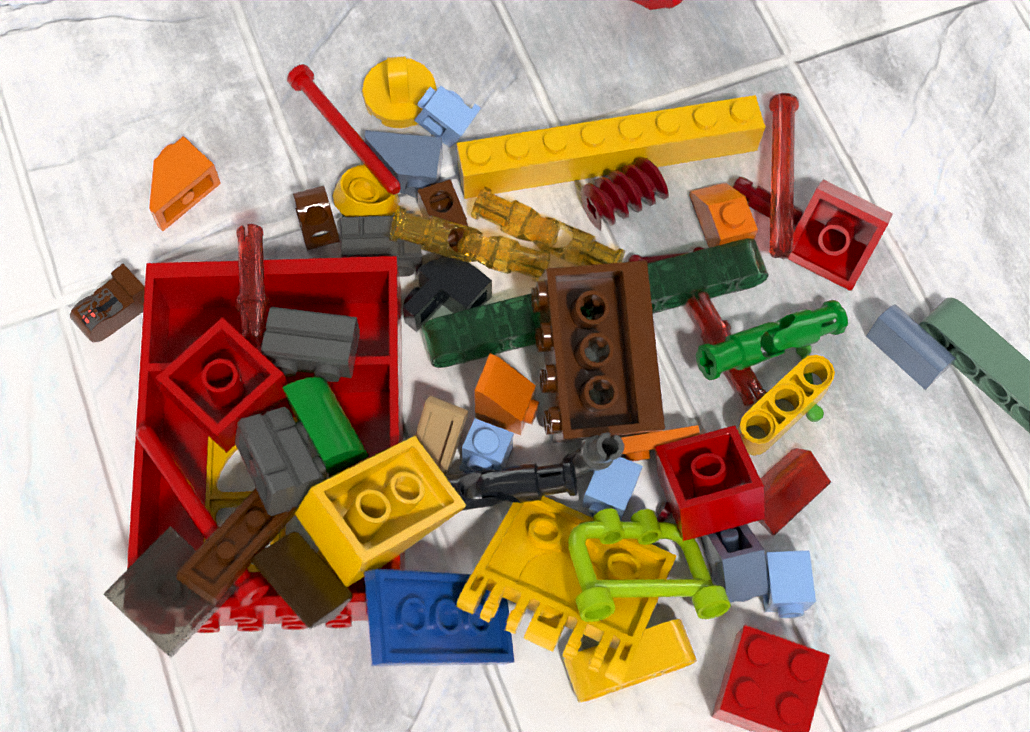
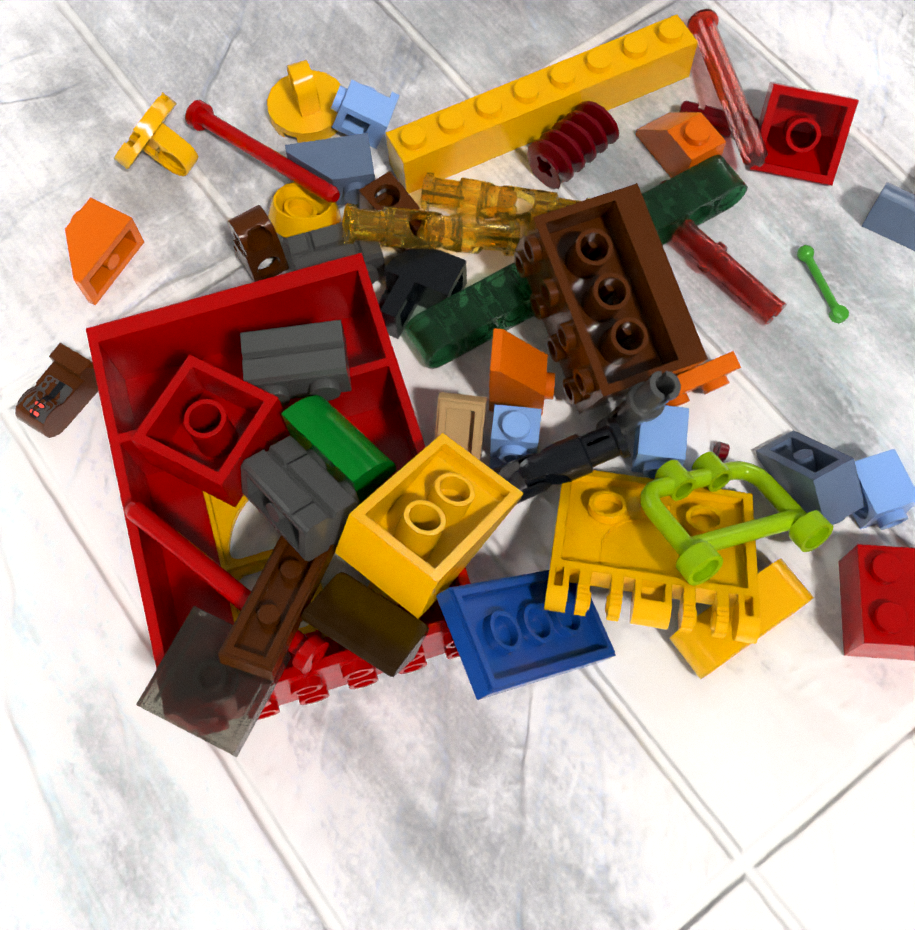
camera: 10 degrees left, 0 degrees up
(252, 300) = (216, 335): clear red pin -> none
(256, 95) = (158, 141): none -> yellow tile
(710, 483) = (766, 406): red brick -> none
(791, 488) = (837, 397): clear red slope -> none
(793, 330) = (774, 247): green piece -> none
(794, 389) = (815, 293): yellow beam -> none

